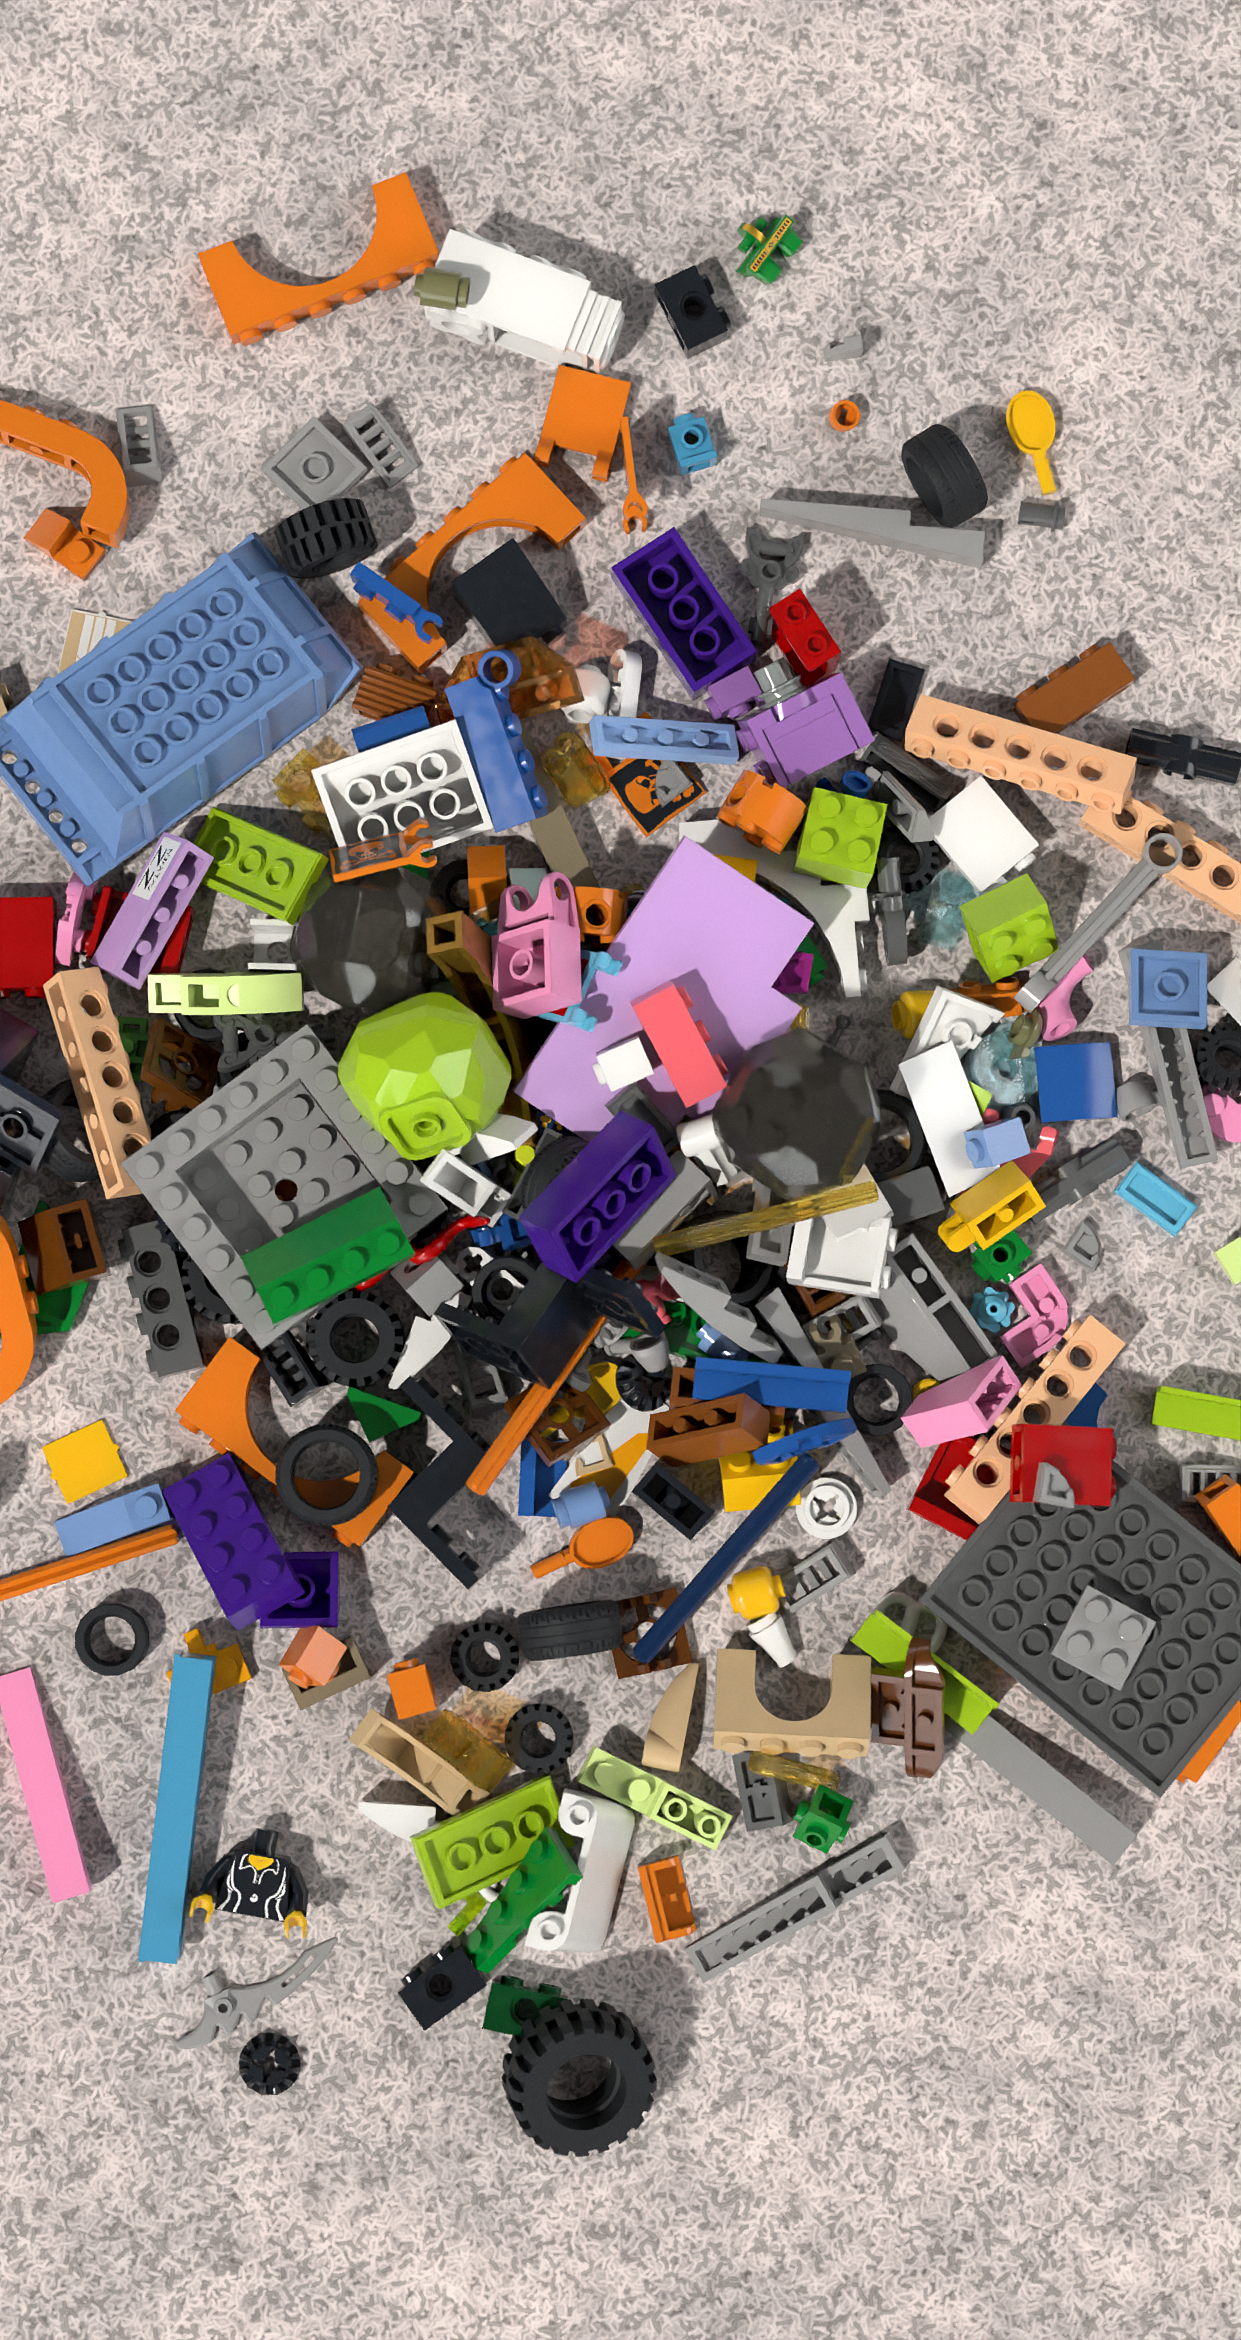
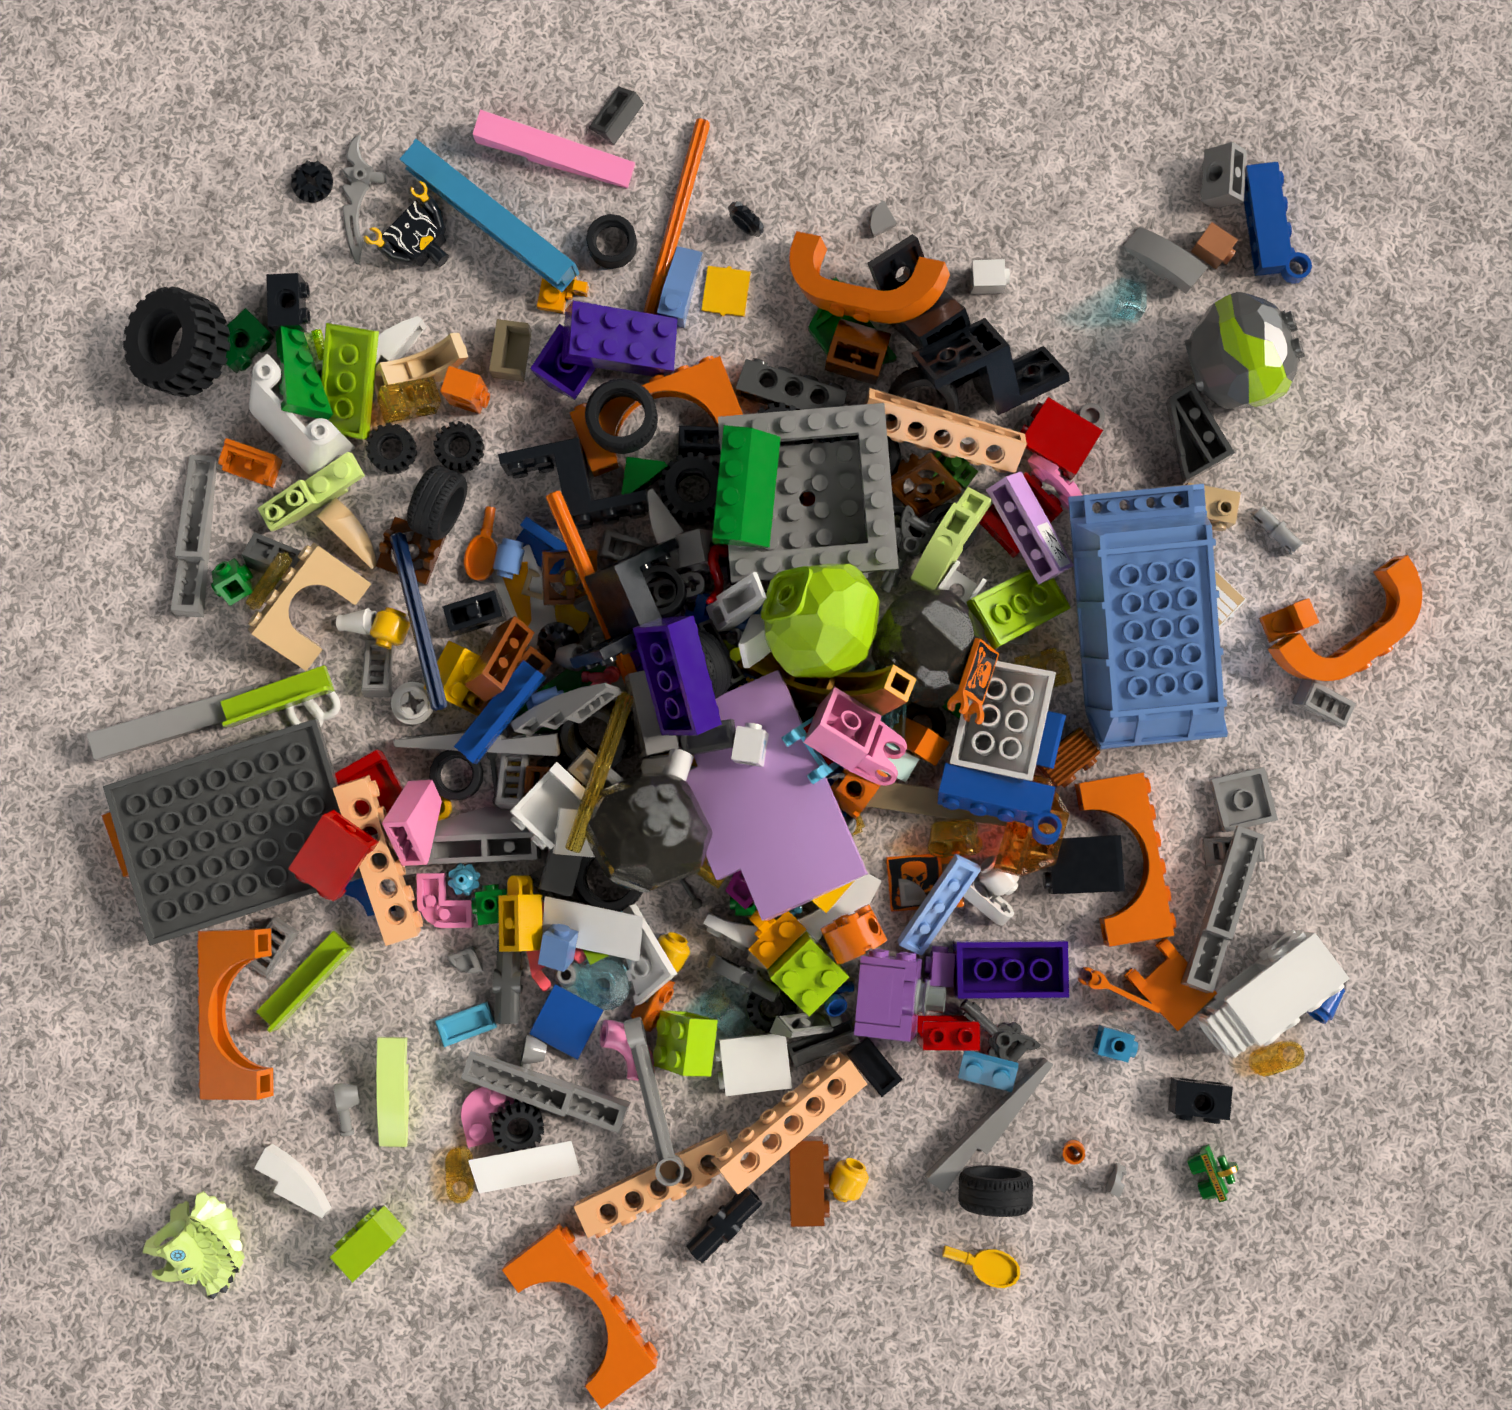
camera: 125 degrees right, 0 degrees up
(258, 304) = (1369, 830): orange arch -> none
(312, 1657) = (521, 343): orange brick -> none
(326, 538) = (1196, 777): black tyre -> none
(397, 603) = (1126, 794): blue plate -> none
(442, 289) = (1313, 948): olive brick -> none
(460, 415) = (1223, 911): none -> light grey slope
(494, 230) = (1328, 1008): none -> blue cone
(595, 260) = (1270, 1059): none -> clear yellow piece
(680, 1043) = (740, 788): coral brick -> none
(805, 1441) = (452, 710): blue tile -> none
(815, 567) = (988, 1070): none -> dark azure plate
(823, 903) = (774, 936): none -> light orange hinge
(837, 1351) = (496, 766): dark tan plate -> none
(910, 1709) = (257, 673): reddish brown plate -> none
(1025, 1034) = (614, 1009): olive animal -> none
(1041, 515) = (932, 1236): dark grey pin -> none
(1041, 648) = (848, 1180): none -> yellow head
(1052, 1487) = (318, 839): light grey tile -> none
(1103, 1637) = (217, 814): light grey plate -> none
(1167, 989) = (583, 1117): medium blue plate -> none

